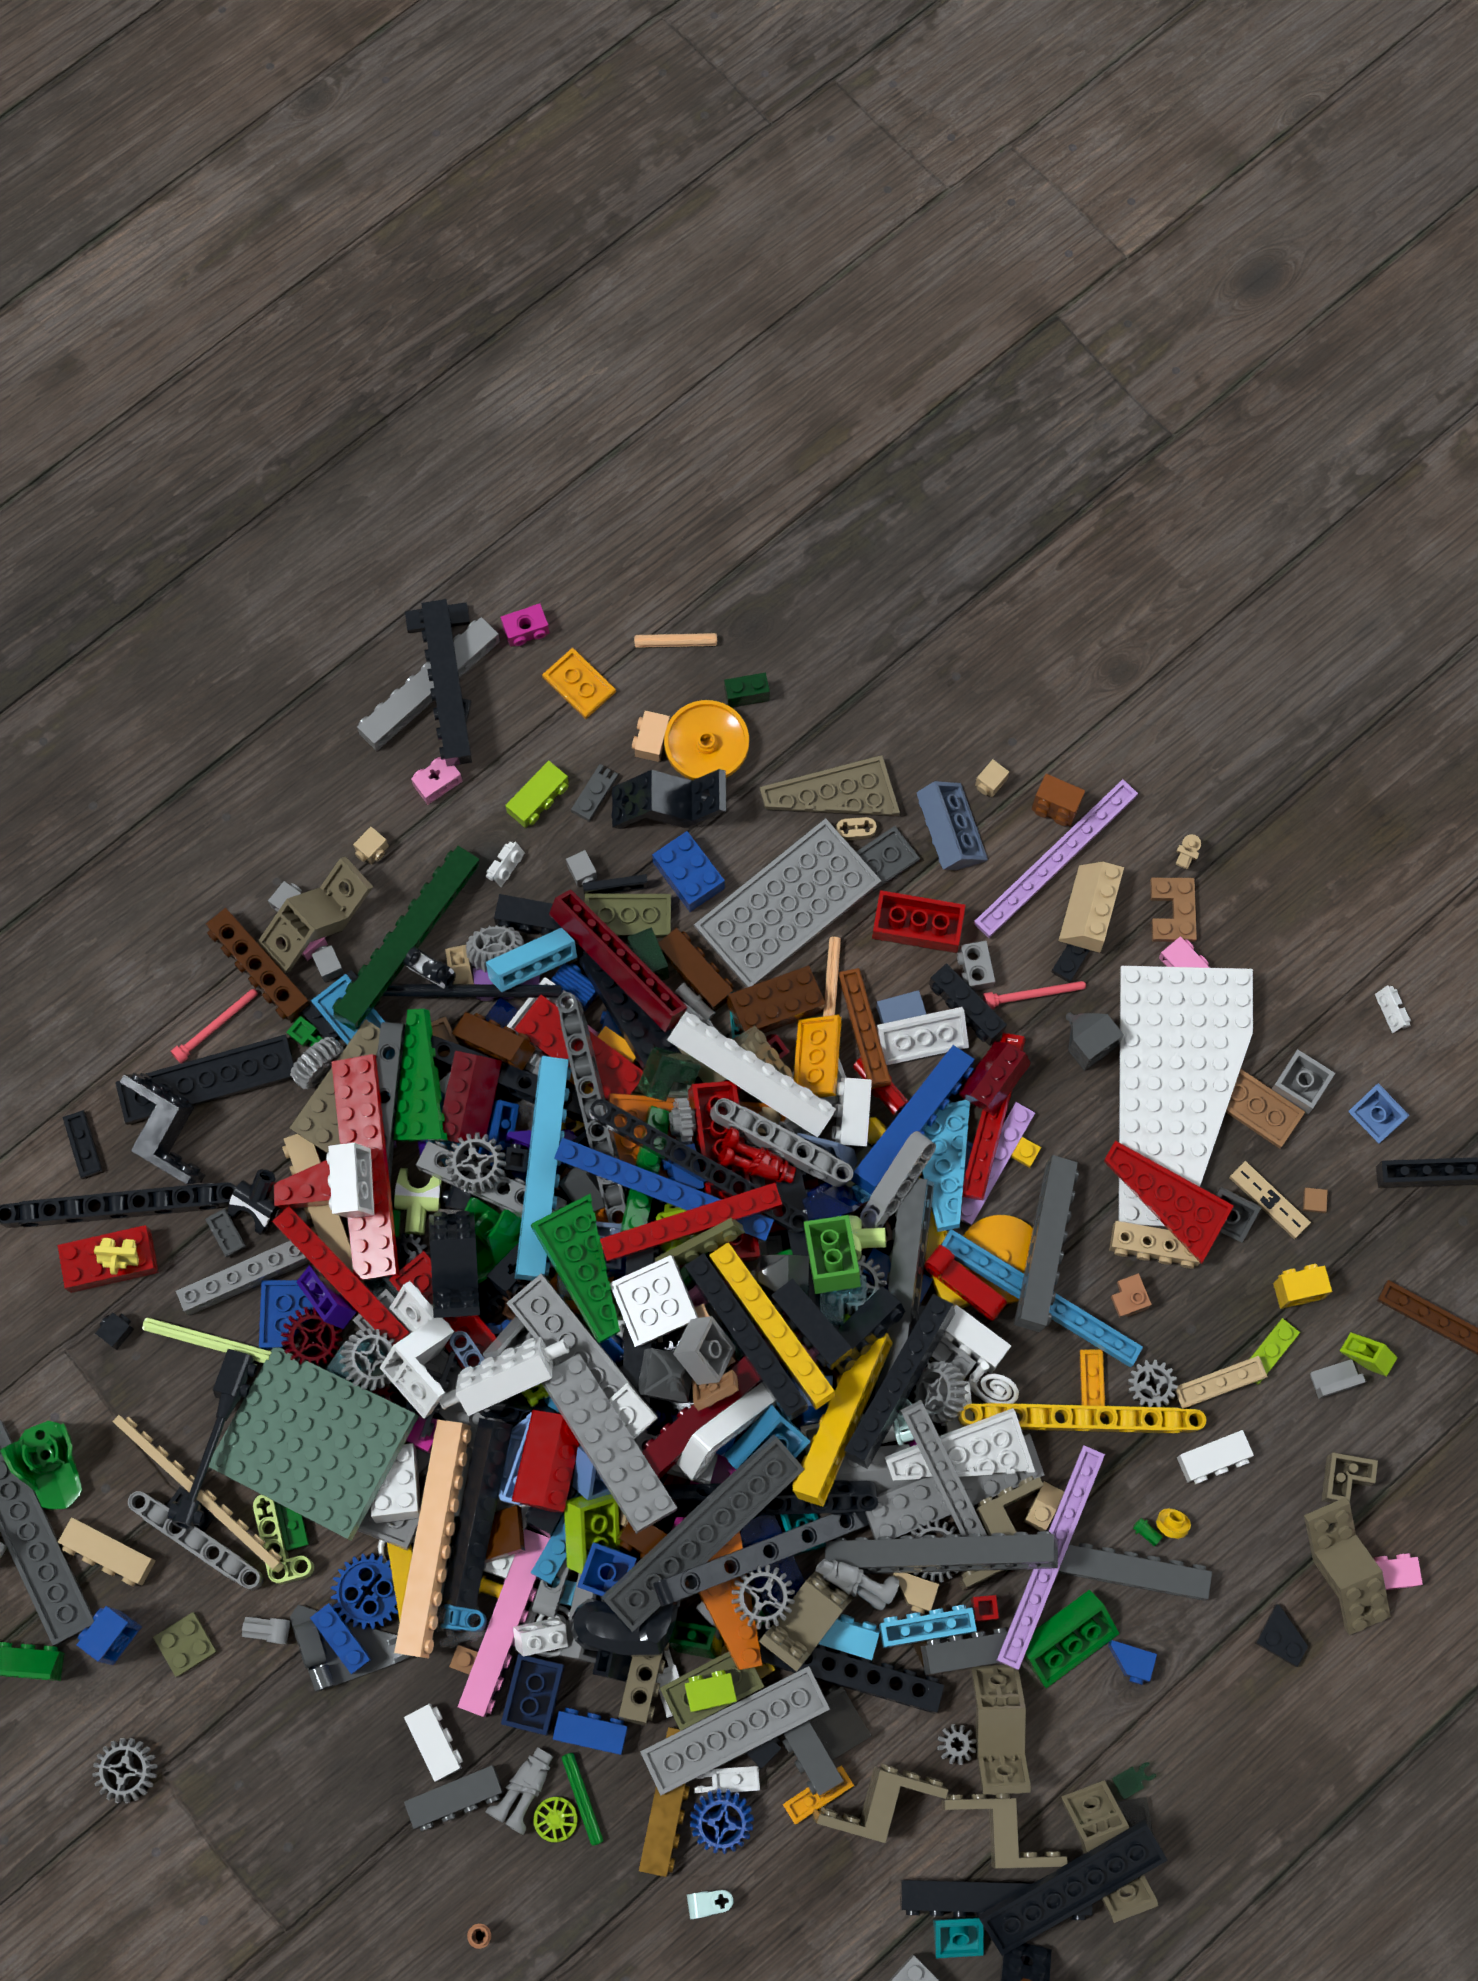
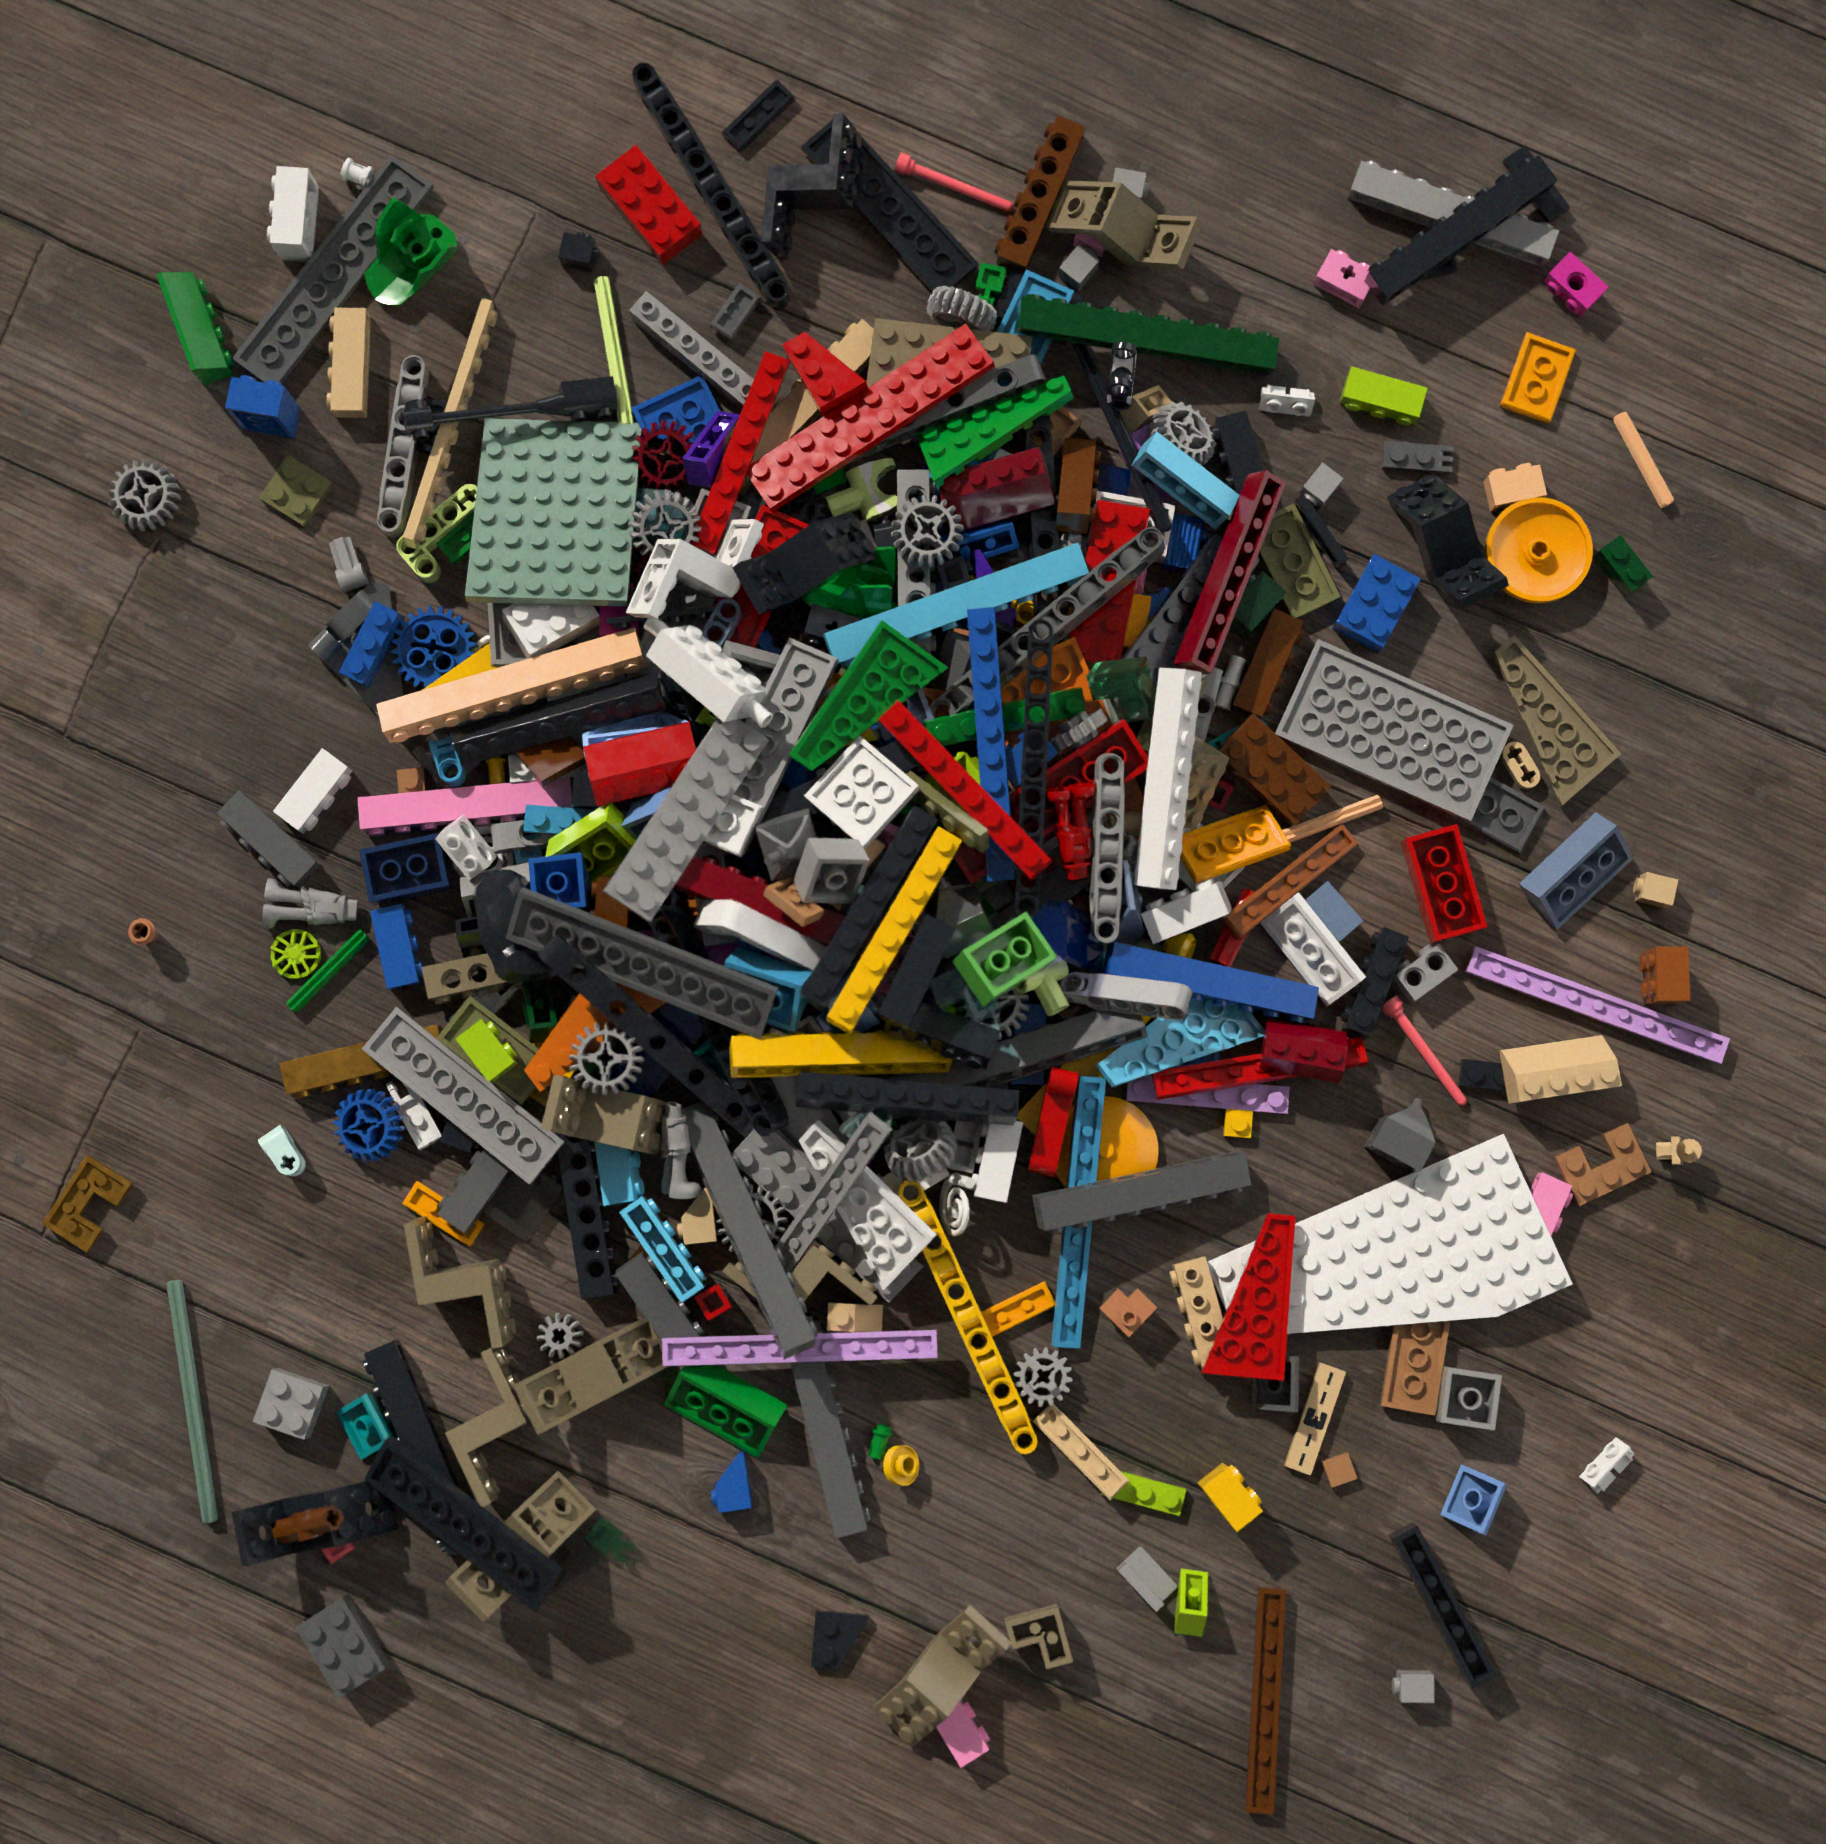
camera: 65 degrees right, 10 degrees up
(116, 1257) = (648, 210): light yellow hips -> none
(255, 1200) = (781, 323): black connector -> none
(350, 1180) = (842, 408): white brick -> none
(370, 846) = (1233, 246): tan brick -> none
(1215, 1457) = (995, 1481): white brick -> none

